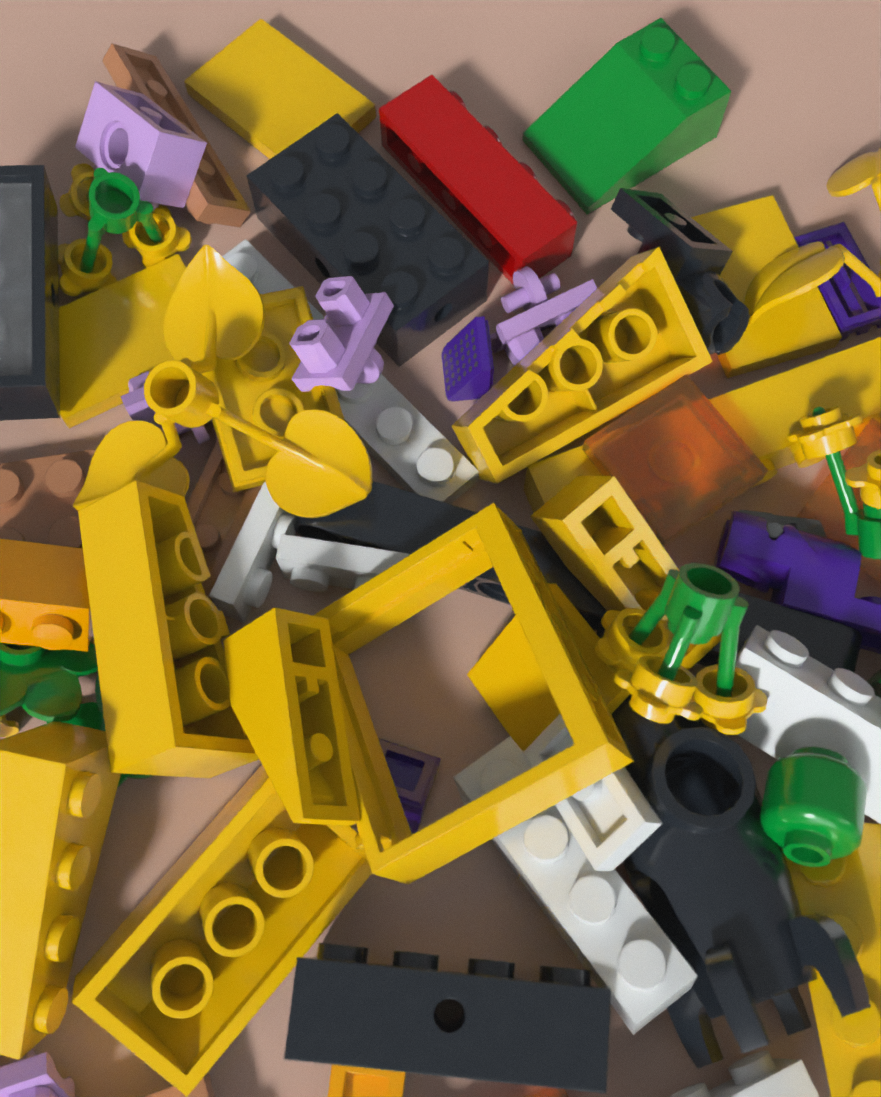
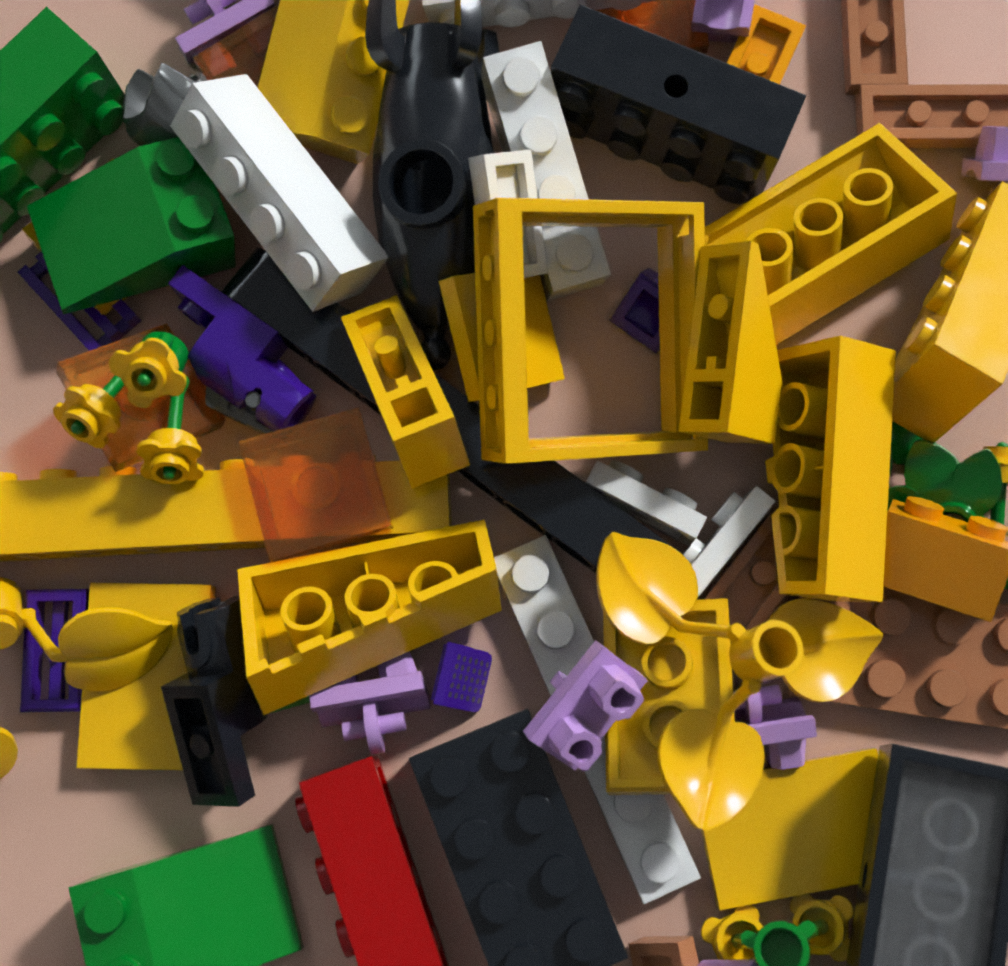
camera: 160 degrees left, 10 degrees up
(699, 605) = (378, 274): plant -> none
(814, 806) = (342, 141): green head -> none

